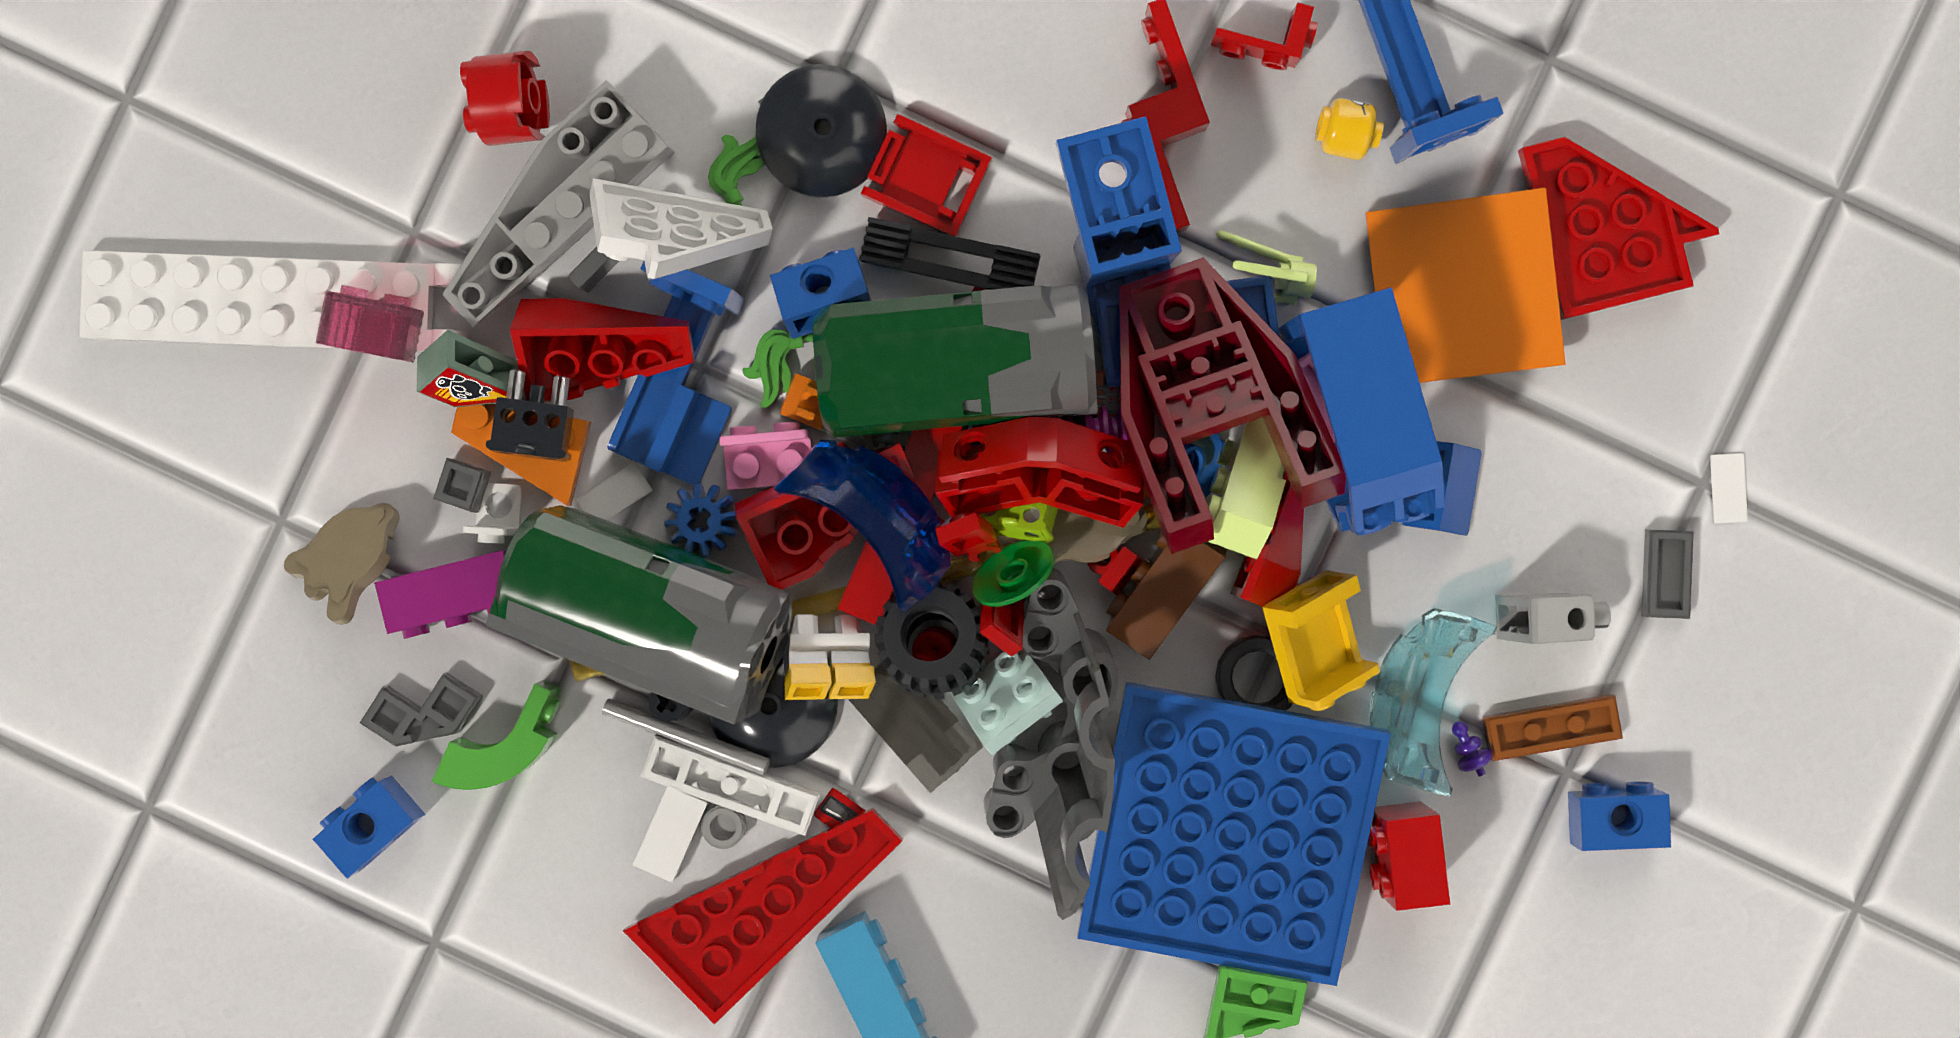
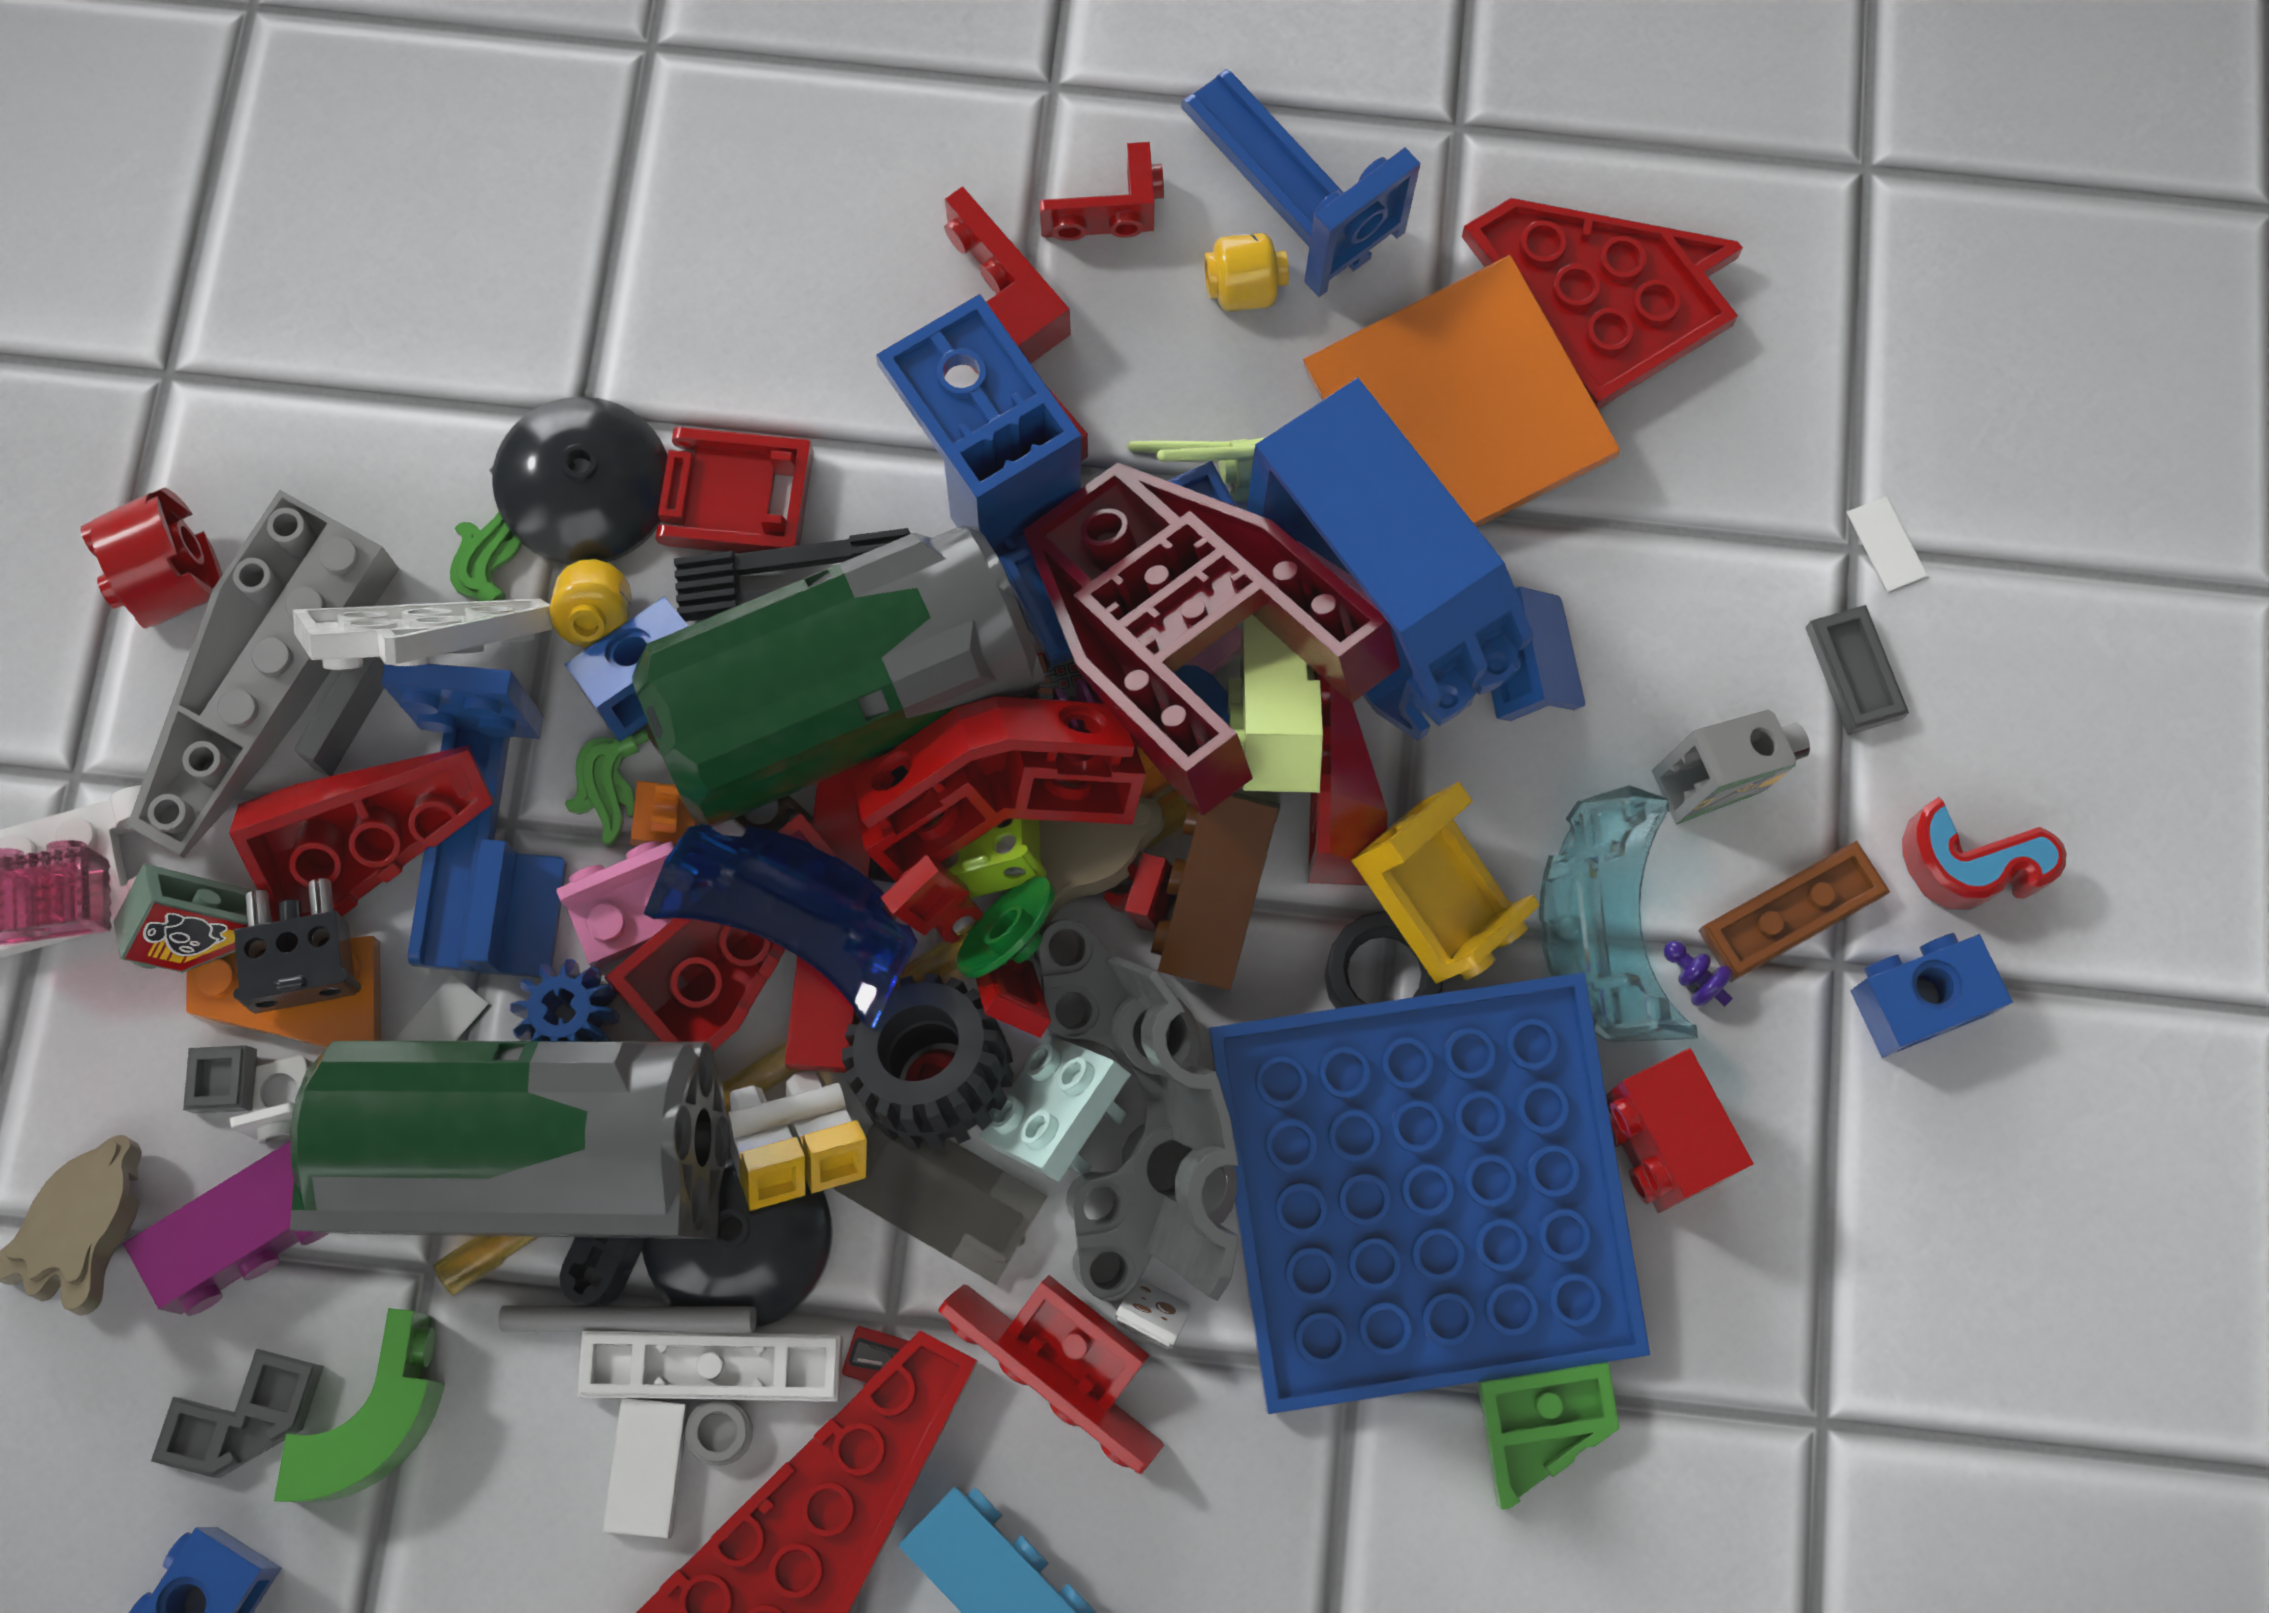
camera: 25 degrees left, 15 degrees down
(800, 232) = (589, 602): none -> yellow head
(959, 860) = (1065, 1357): none -> red bracket
(1024, 851) = (1153, 1314): none -> white slope
(1691, 750) = (1975, 876): none -> red animal

